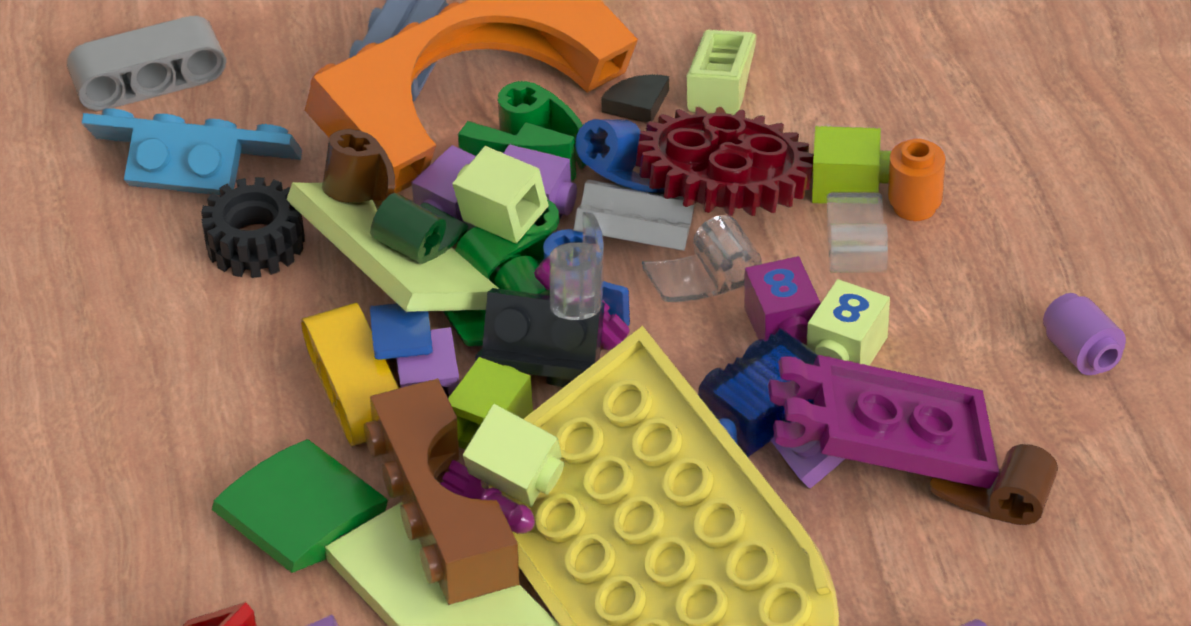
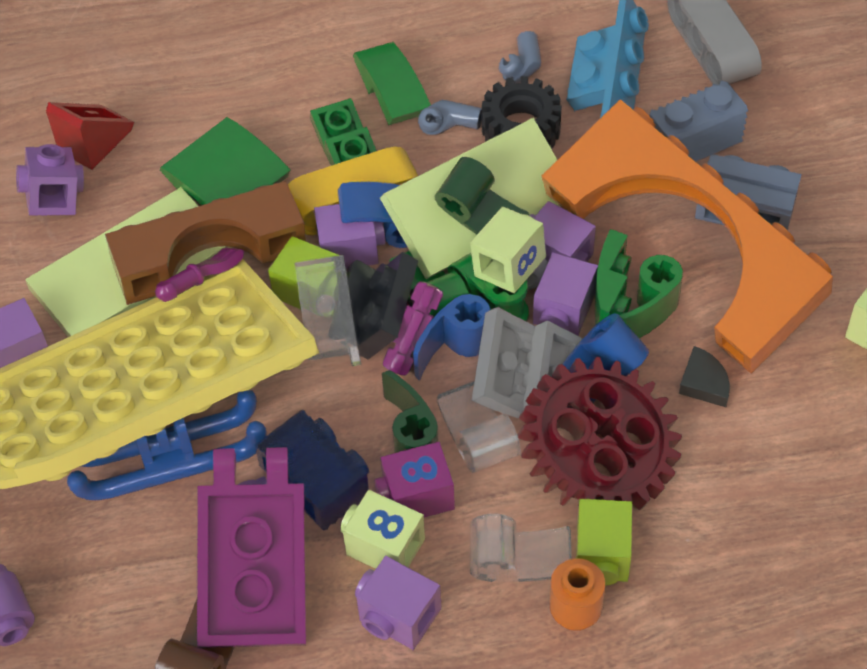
camera: 90 degrees right, 10 degrees up
(153, 227) = (526, 62): none -> sand blue arm
(161, 343) = (393, 82): none -> green slope
(232, 295) = (448, 114): none -> sand blue arm
(274, 391) = (341, 132): none -> green slope
(286, 65) = (704, 120): none -> sand blue brick
(357, 168) = (541, 149): reddish brown panel -> none
(514, 456) = (205, 269): yellowish green brick -> none
(568, 336) = (328, 307): none -> clear panel
(578, 274) = (390, 309): clear panel -> none
(714, 303) = (416, 423): none -> dark green panel
(720, 71) = (747, 457): yellowish green slope -> none
(930, 316) = (397, 602): none -> medium lavender brick

